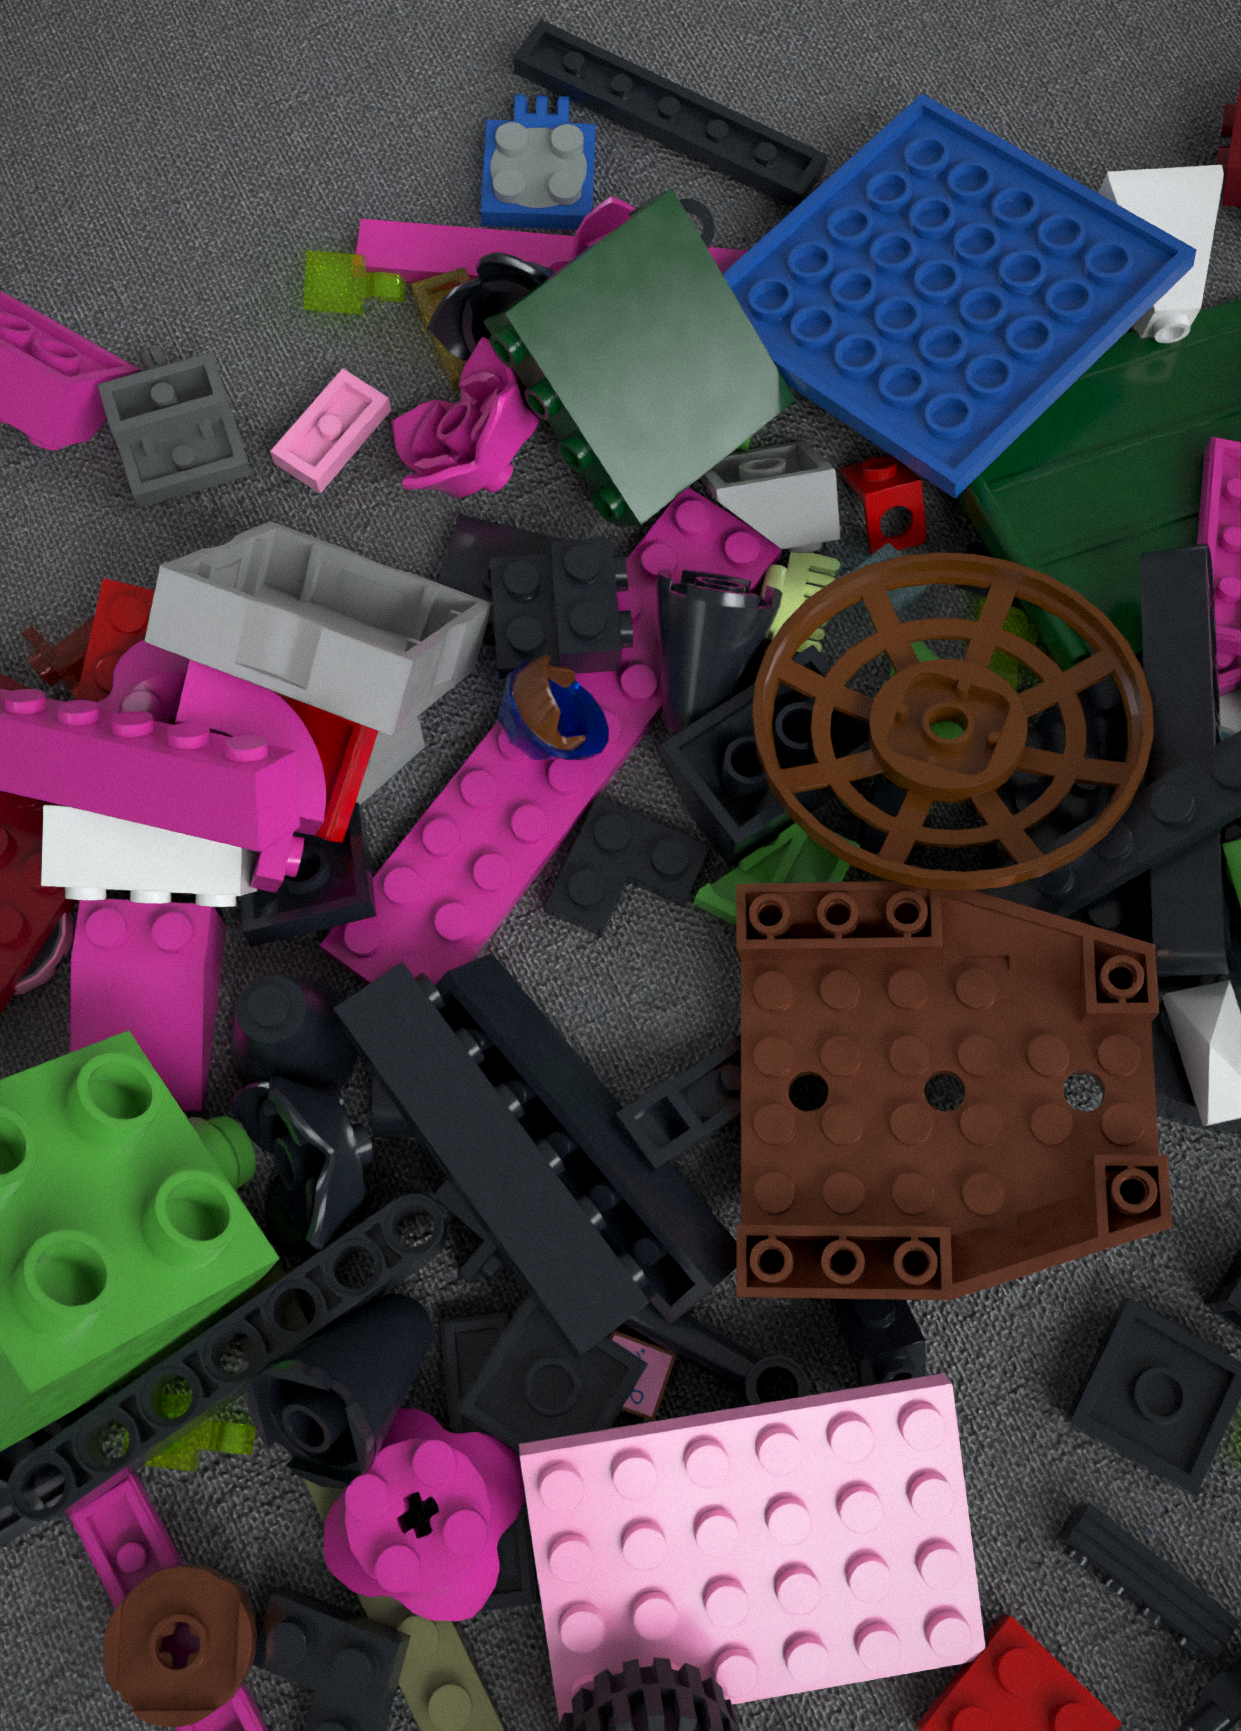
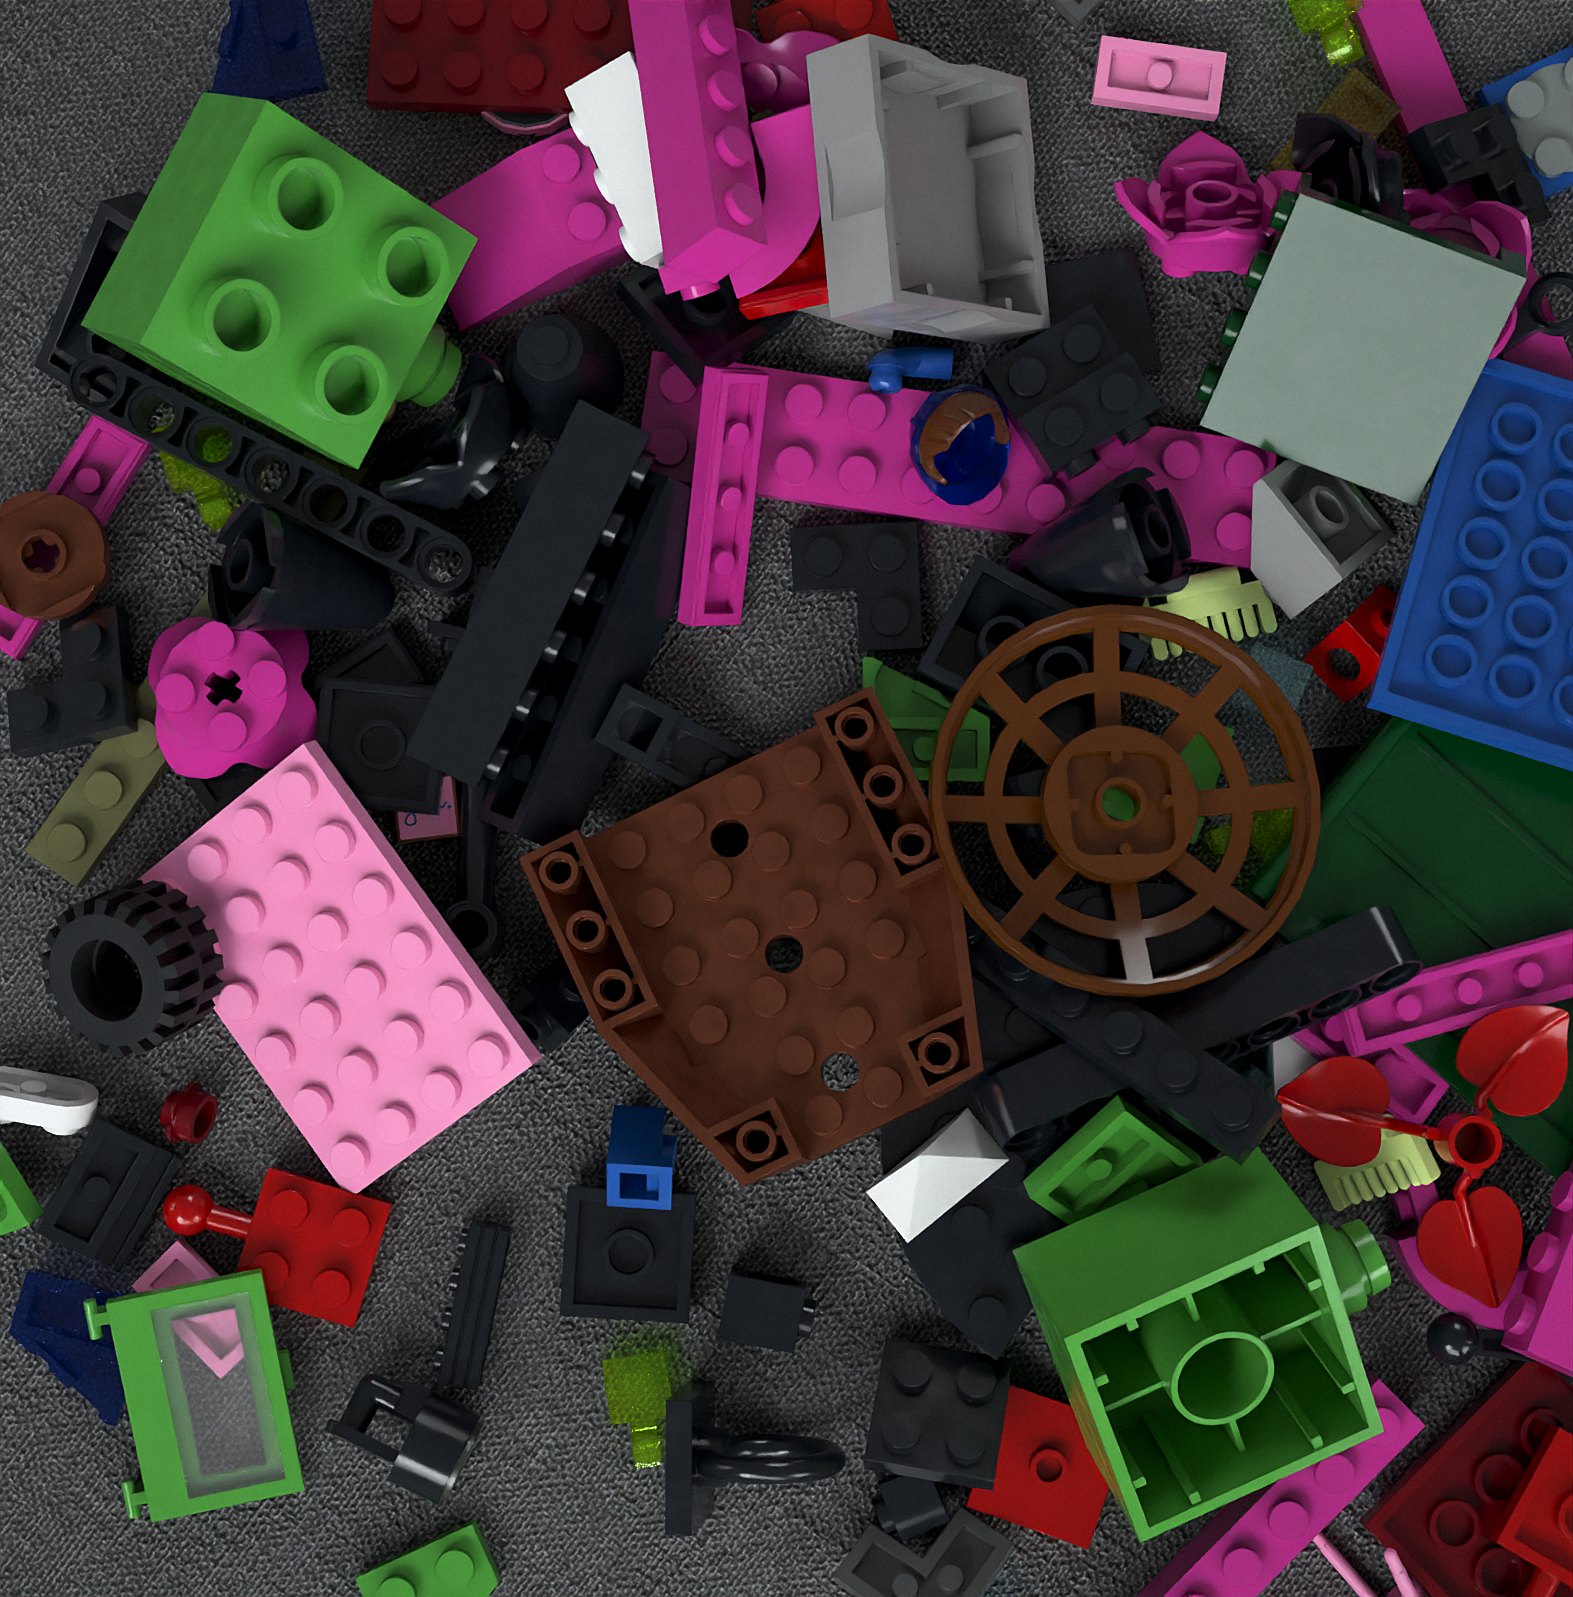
camera: 70 degrees right, 15 degrees up
(451, 743) = (918, 361): none -> blue arm
(488, 941) = (722, 496): none -> dark pink tile
(532, 229) = (1480, 151): none -> black plate
(1075, 1332) = (640, 1159): none -> blue brick

